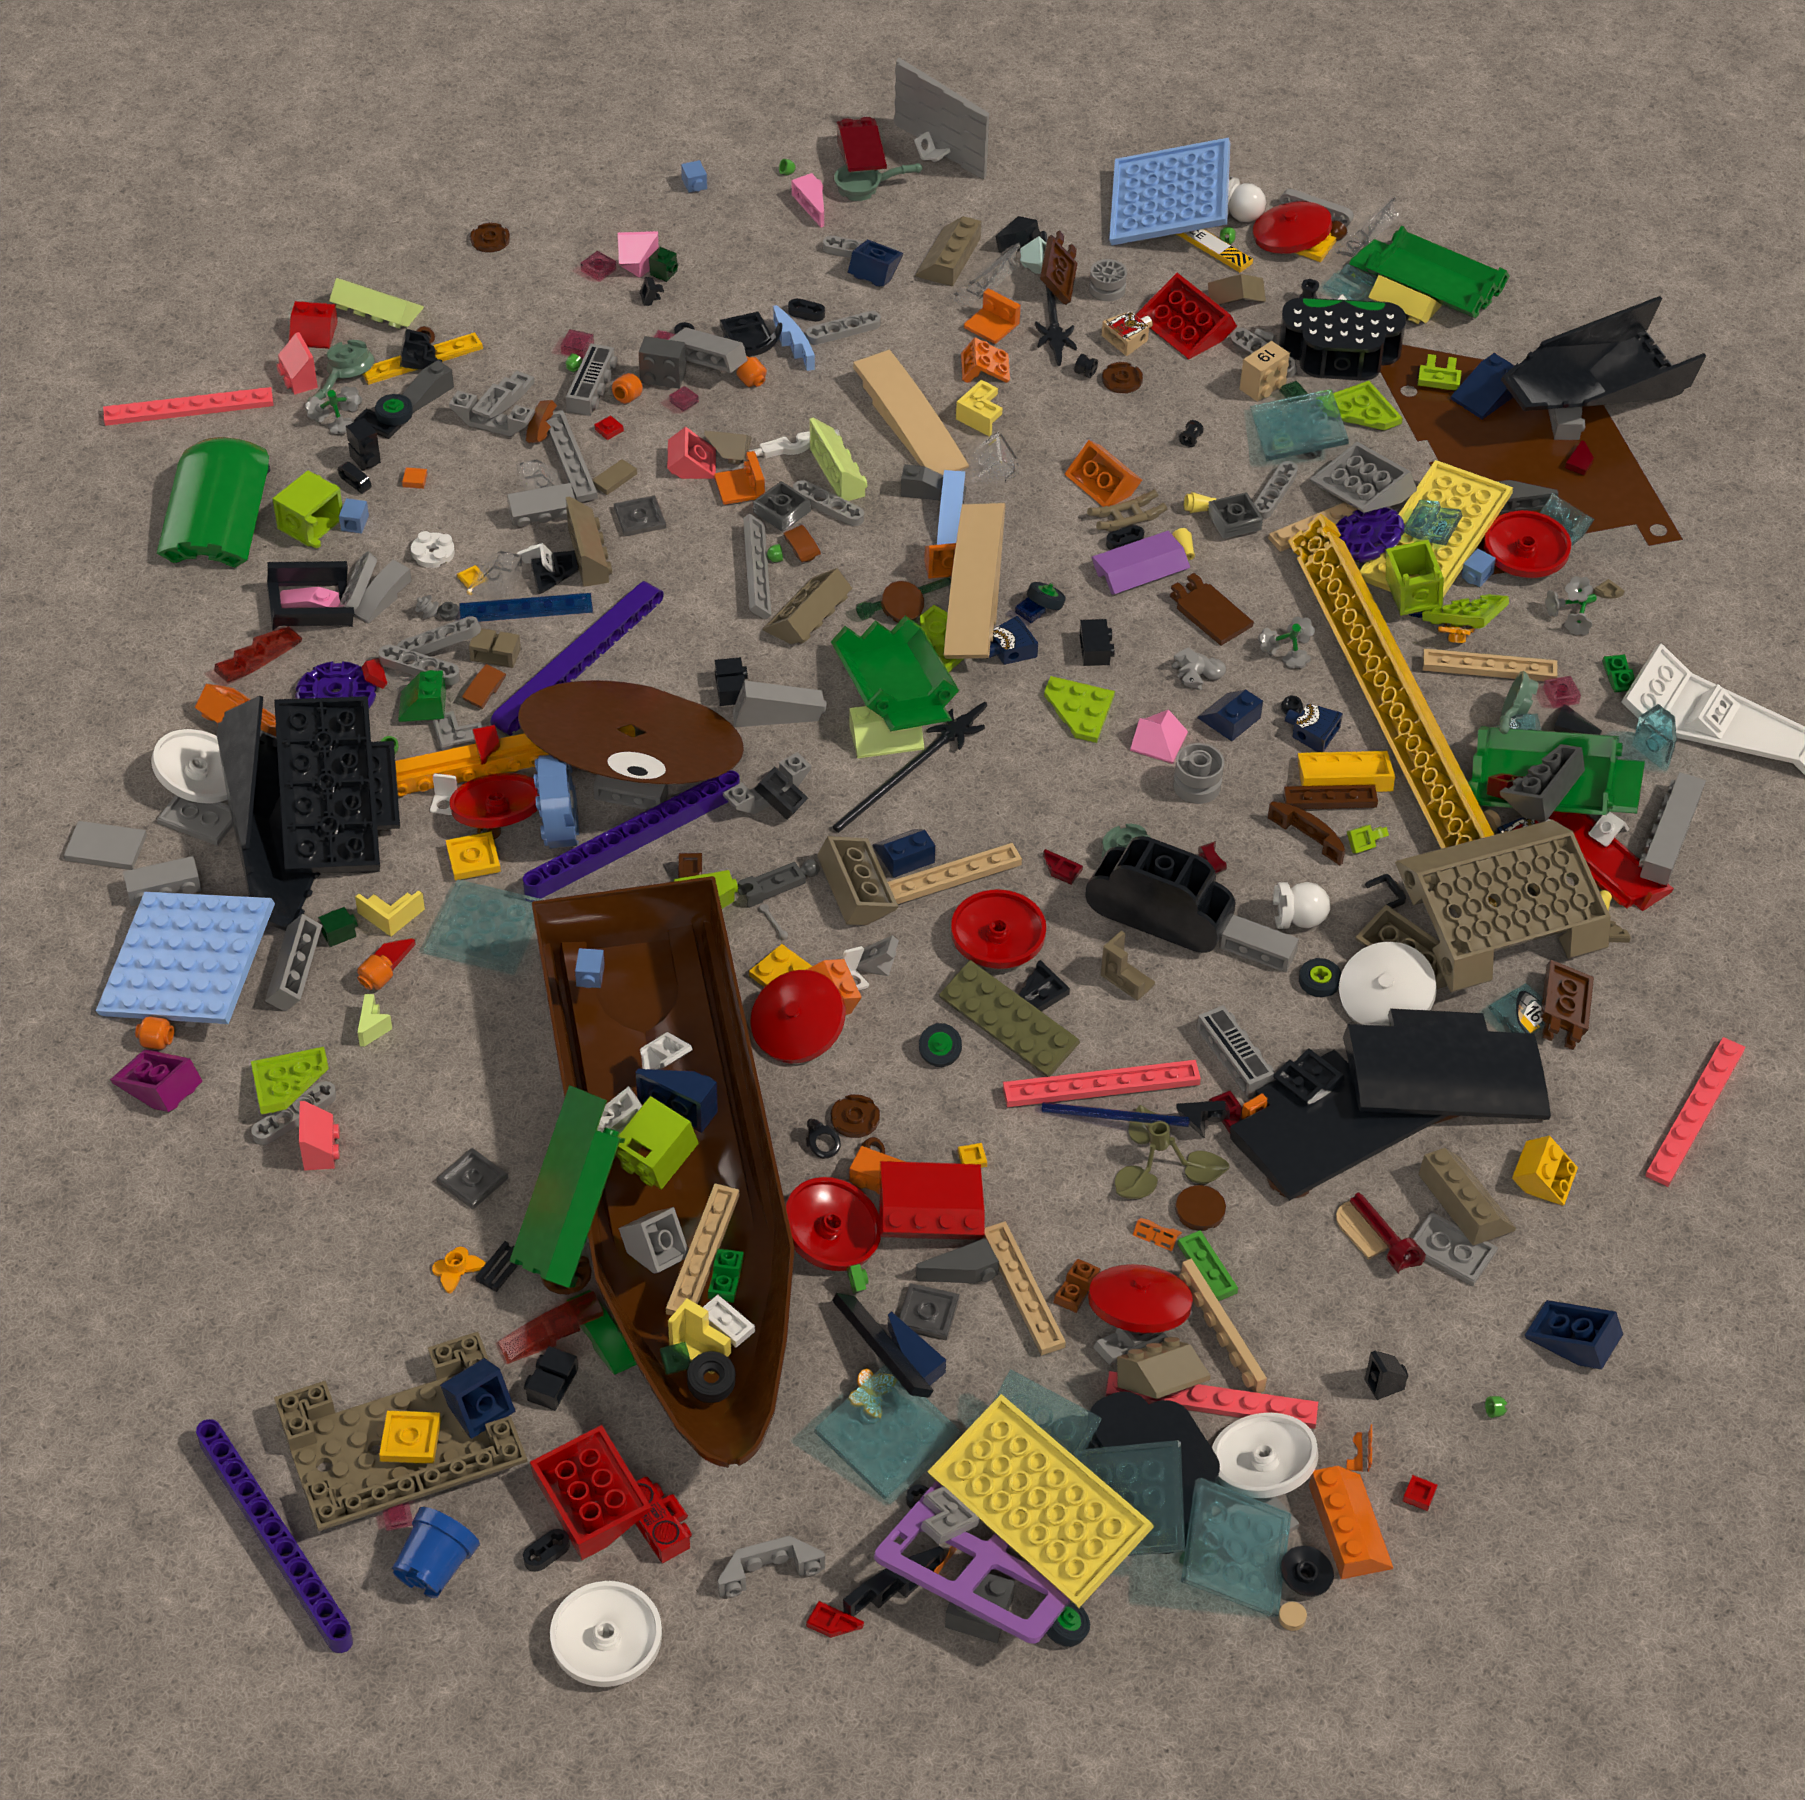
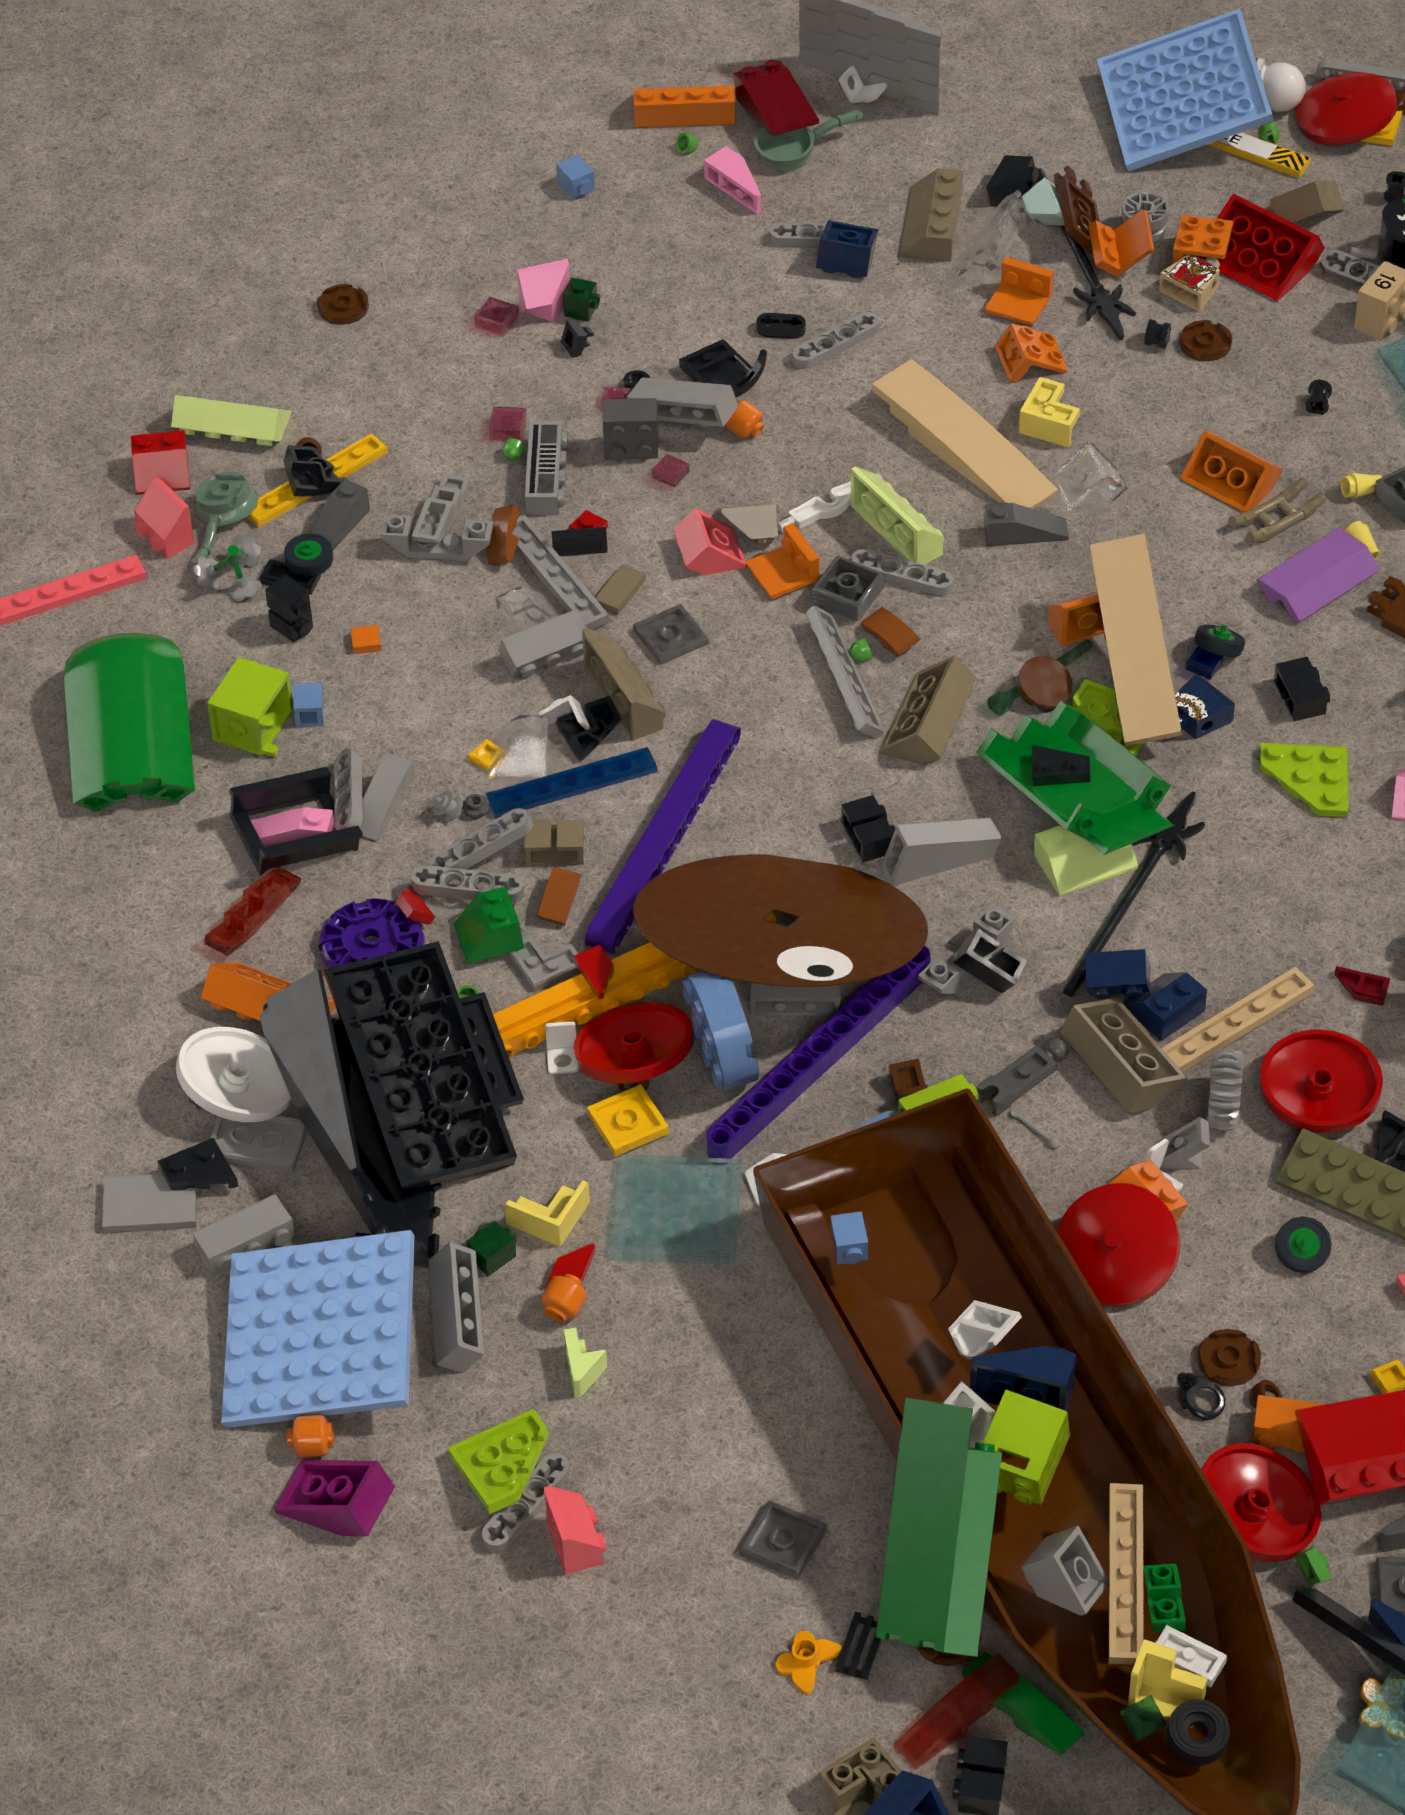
camera: 10 degrees left, 0 degrees up
(146, 827) = (197, 1167): none -> black wing
(354, 477) = (289, 653): black beam -> none
(426, 541) = (424, 716): white plate -> none
(596, 436) = (580, 541): none -> black tile
(627, 388) = (594, 470): orange head -> none
(777, 963) = (1066, 1183): yellow plate -> none
(794, 139) = (684, 106): none -> orange slope
(794, 337) = (782, 365): light blue slope -> none
(873, 820) = (1117, 973): none -> dark blue slope
(887, 663) = (1059, 767): none -> black wing
(921, 920) = (1225, 1089): none -> light grey gear
(950, 506) = (1059, 550): light blue slope -> none
(1079, 299) = (1122, 247): none -> orange bracket
(1124, 537) = (1283, 544): black beam -> none
(1144, 301) = (1202, 237): none -> orange bracket

